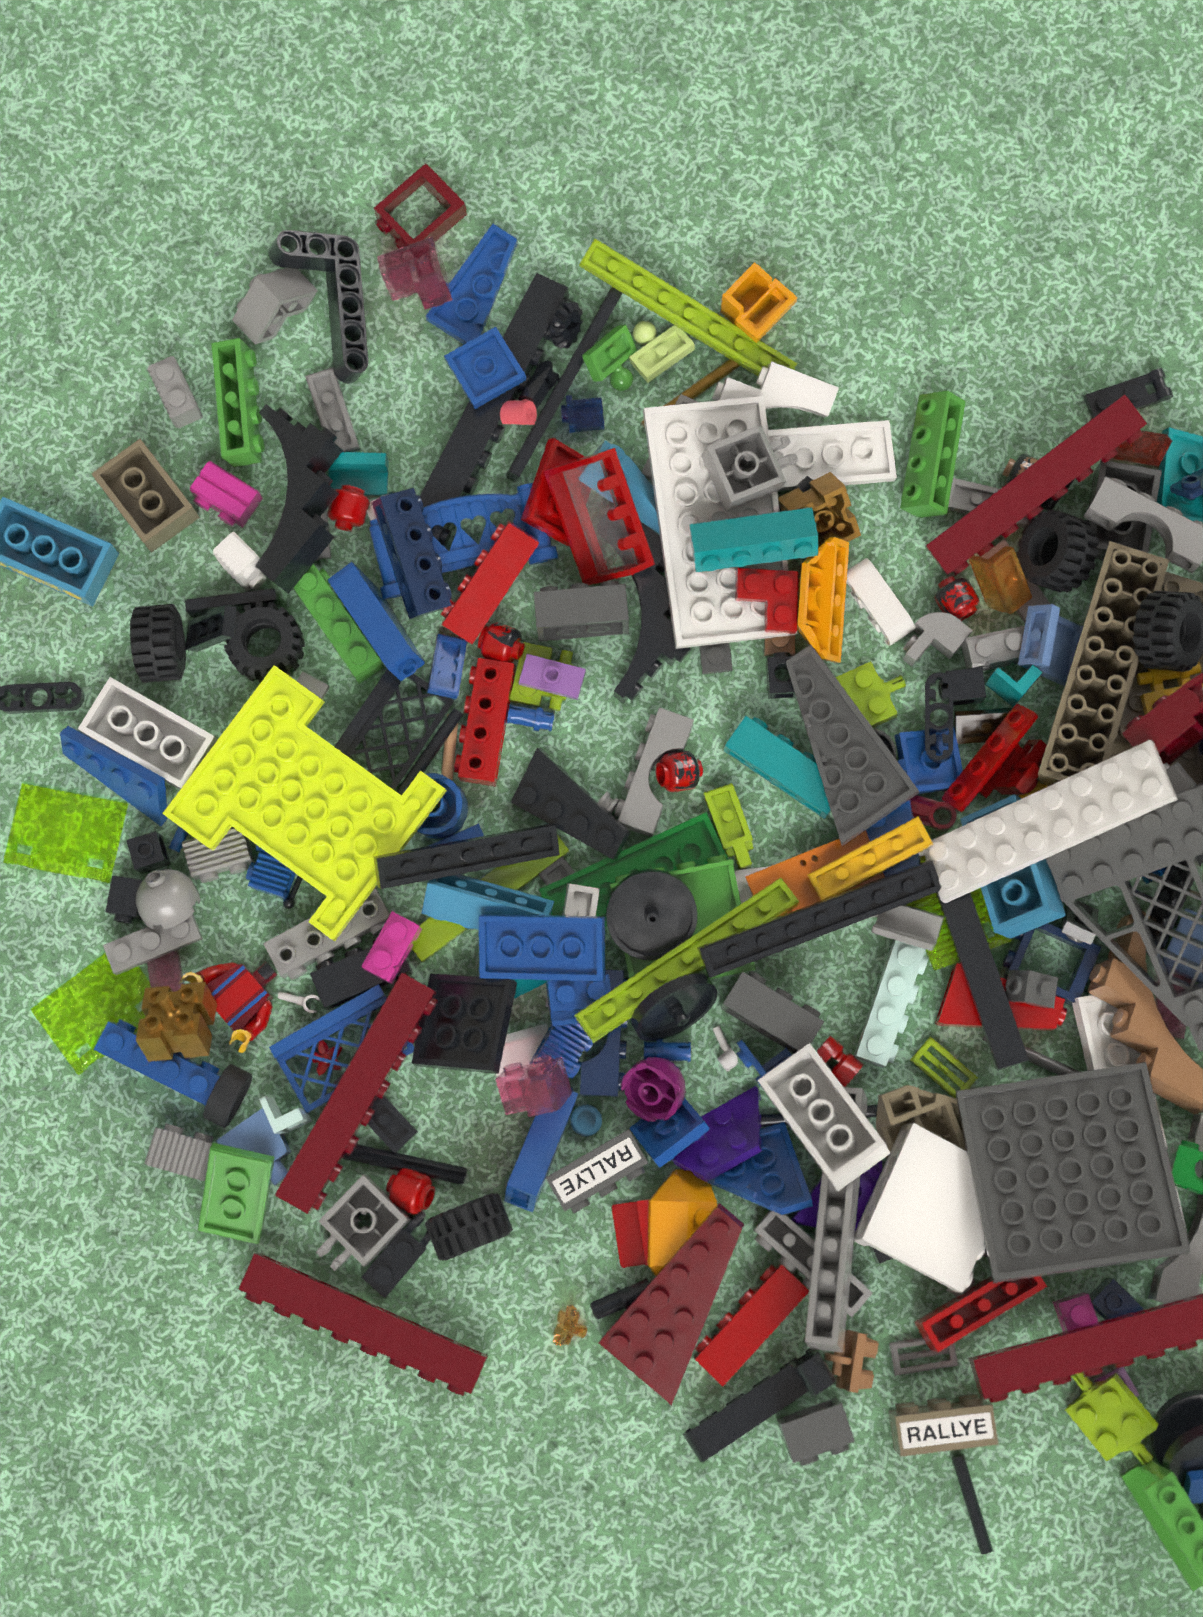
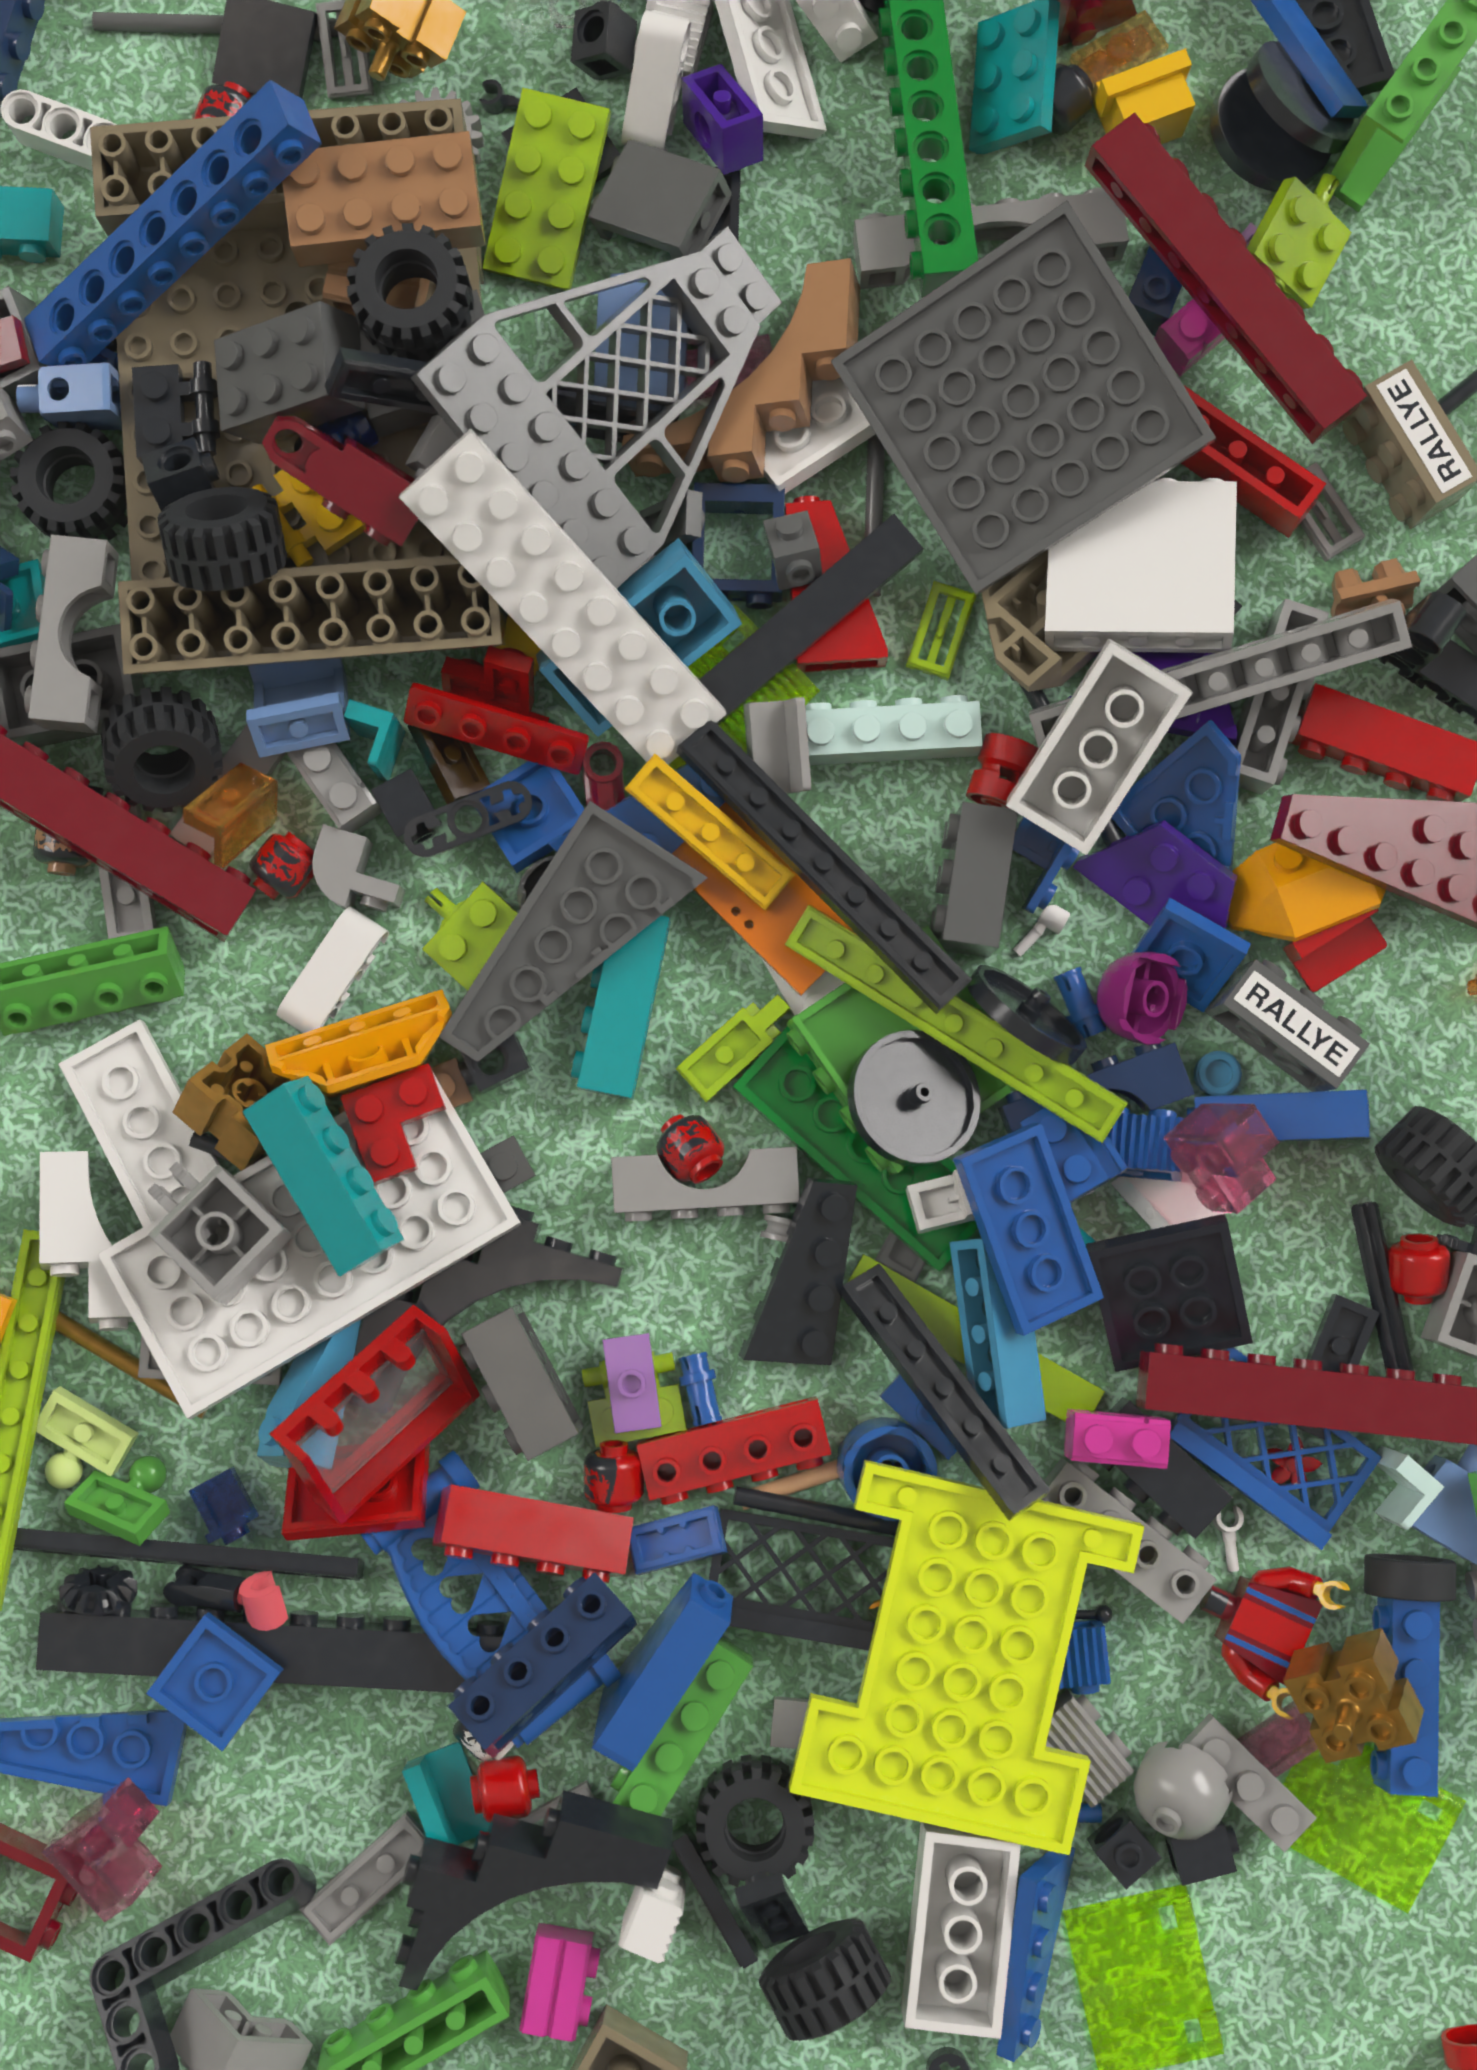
camera: 120 degrees left, 5 degrees up
(617, 1300) = (1432, 929): black axle -> none

